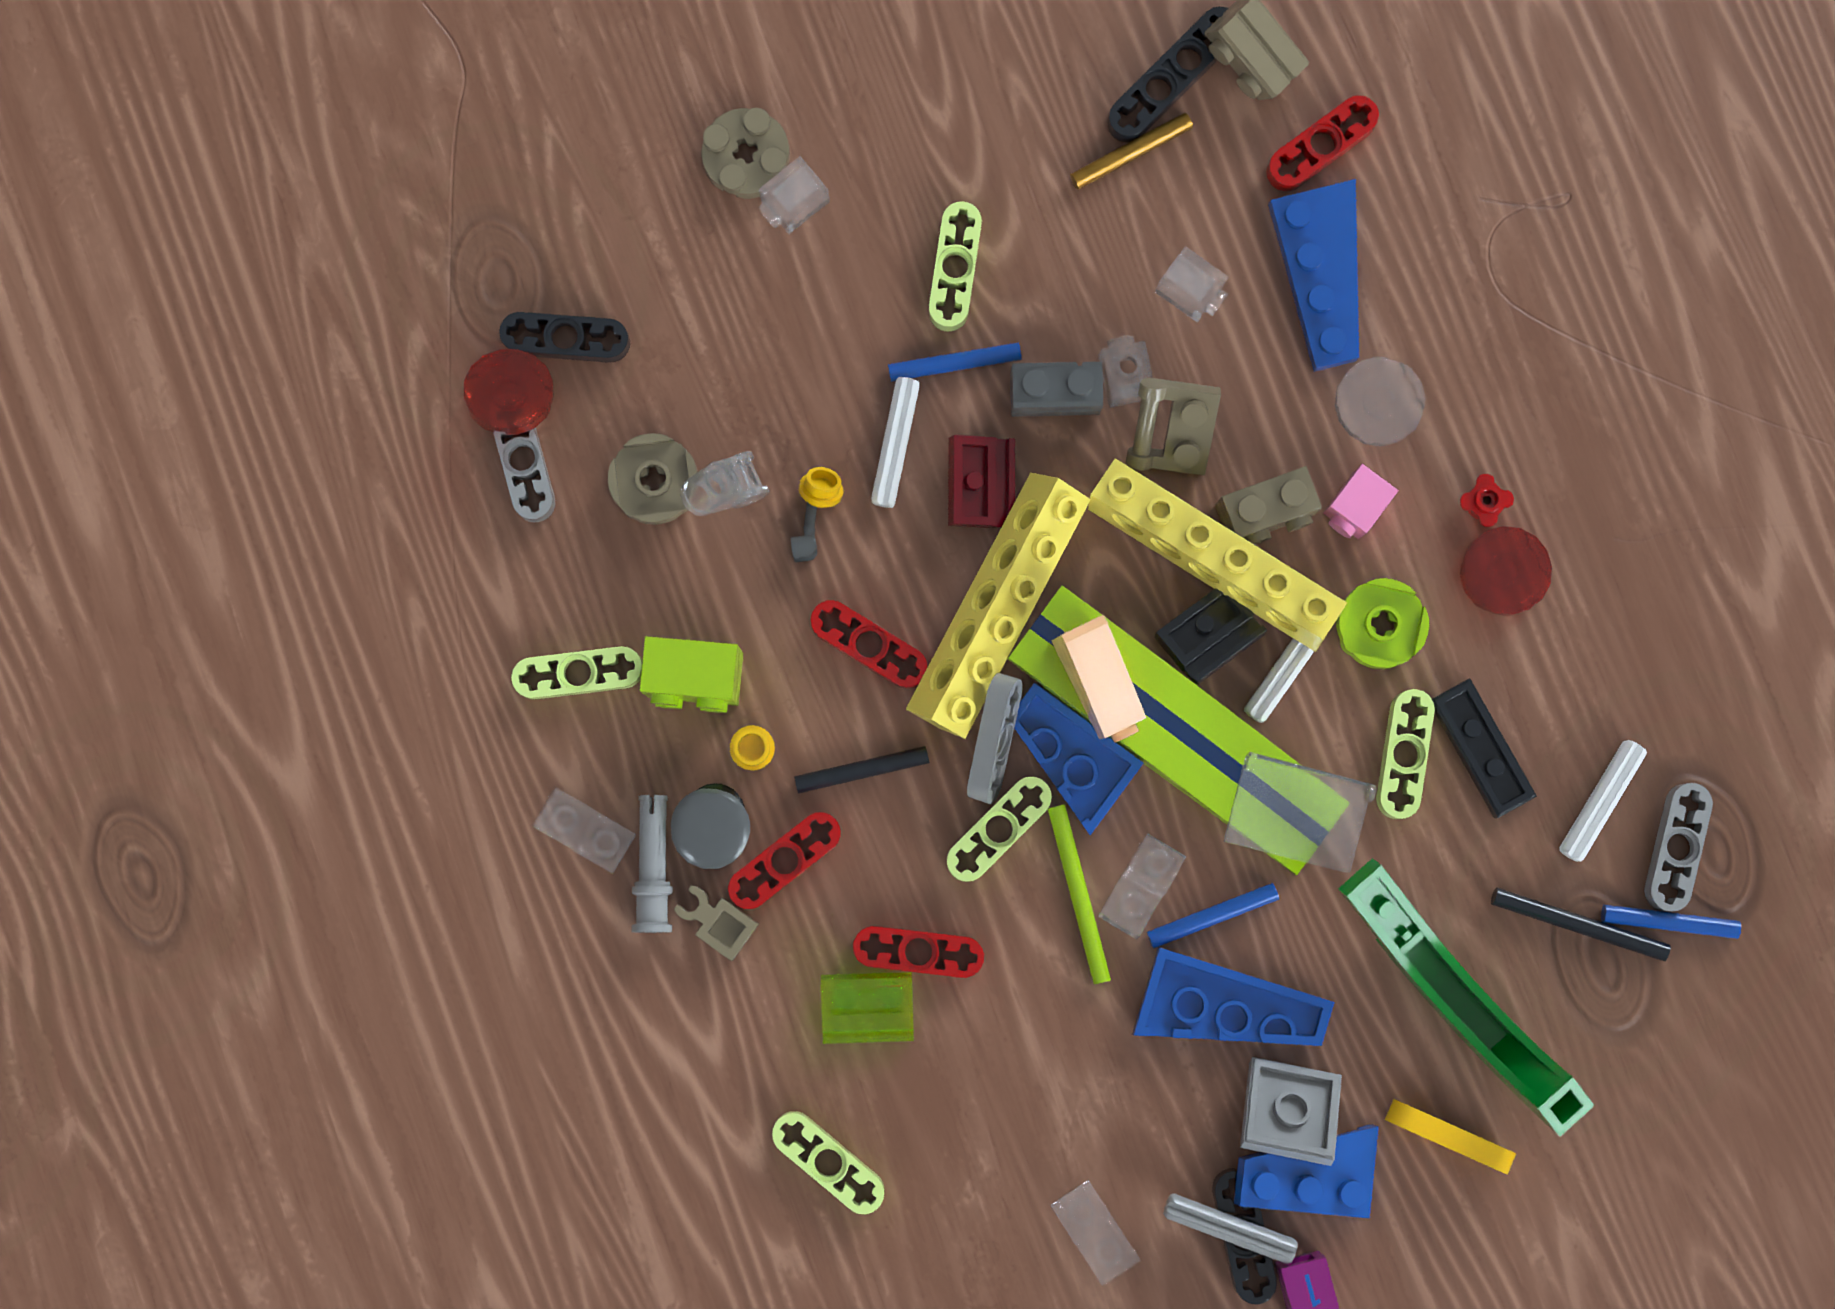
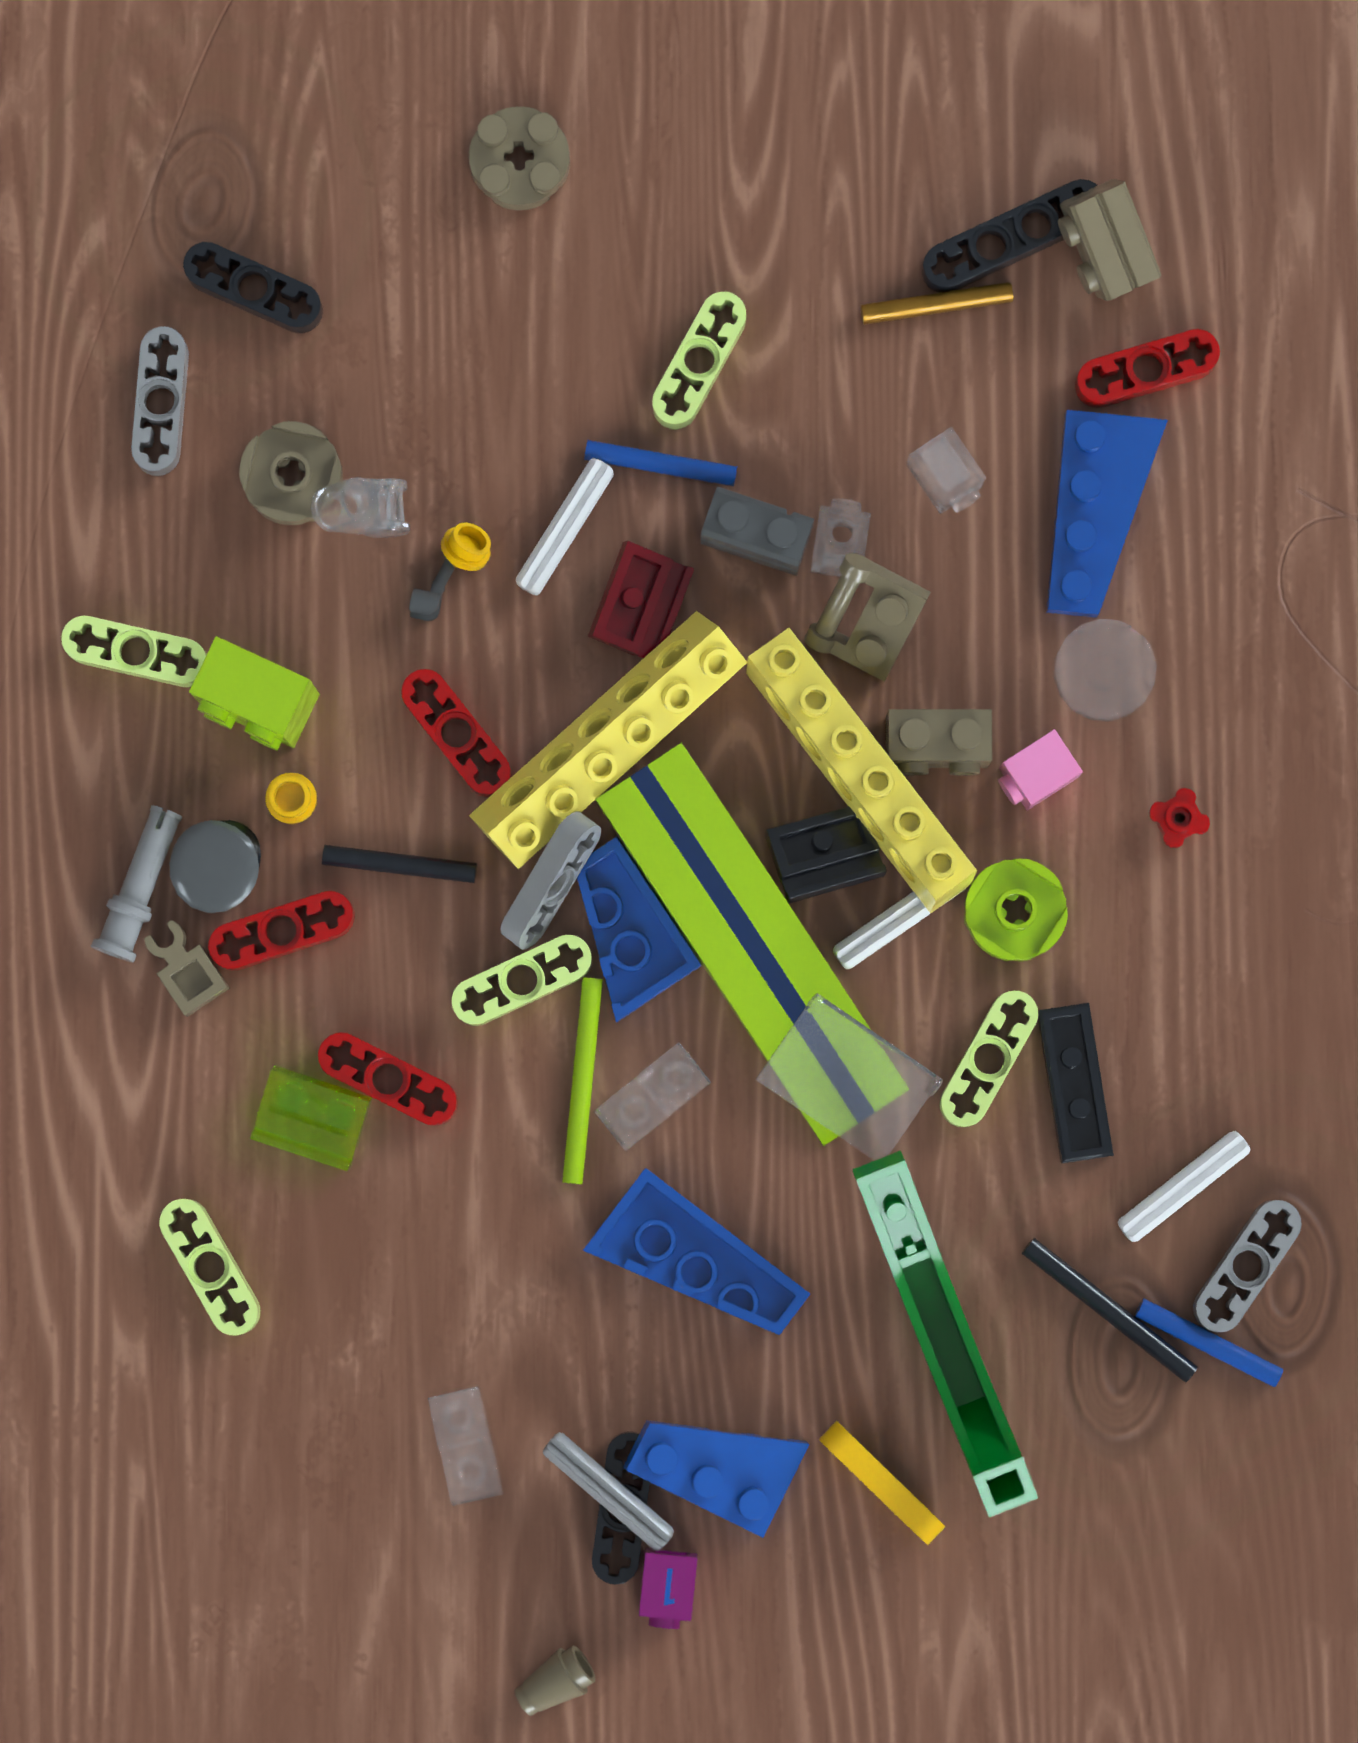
camera: 25 degrees right, 0 degrees up
(508, 391) = (170, 324): clear red tile -> none
(584, 830) = (80, 820): clear slope -> none
(793, 196) = (551, 223): clear brick -> none
(1100, 679) = (681, 855): light nougat slope -> none
(1212, 915) = (717, 1156): blue bar -> none
(1291, 1111) = (720, 1392): light grey tile -> none
(1506, 571) = (1172, 901): clear red tile -> none

